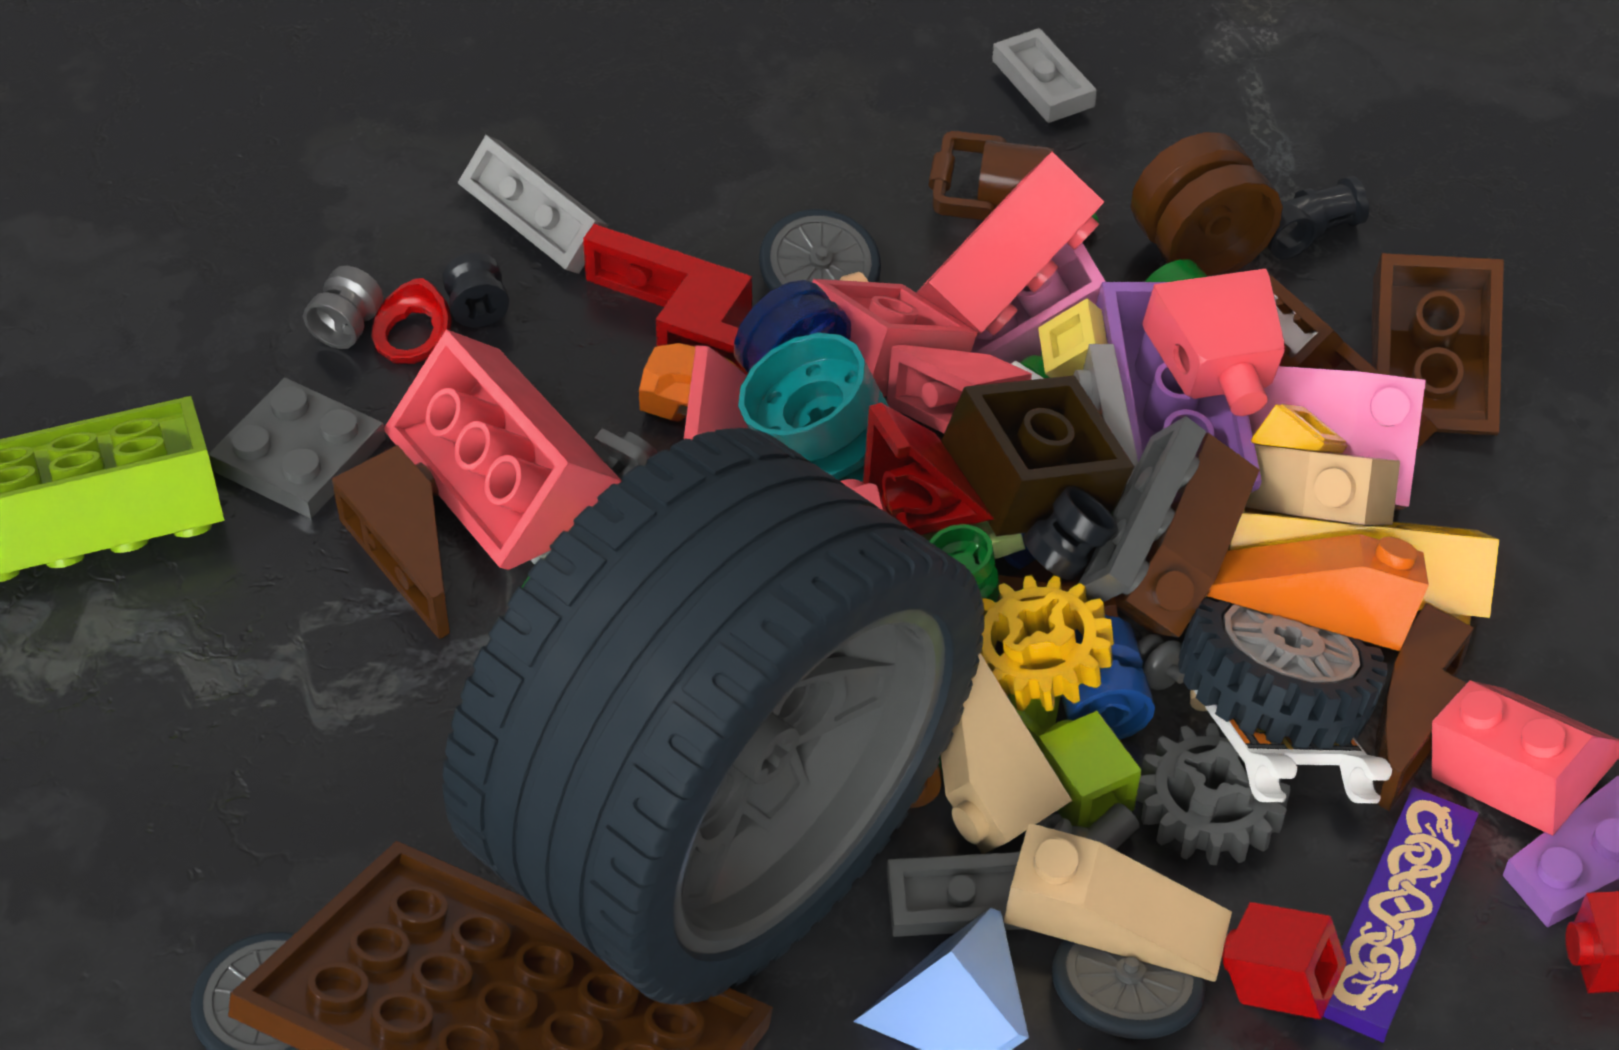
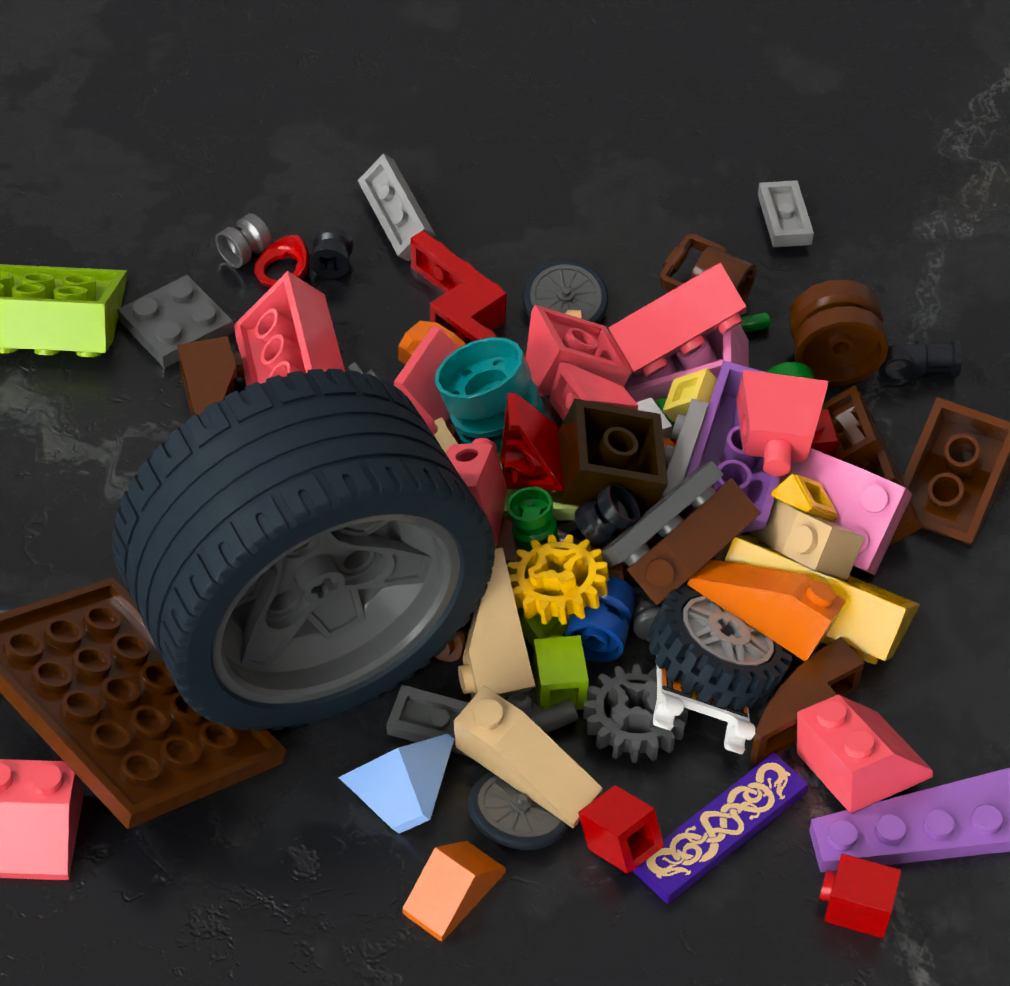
camera: 20 degrees right, 0 degrees up
(784, 314) = (498, 321): clear blue wheel -> none

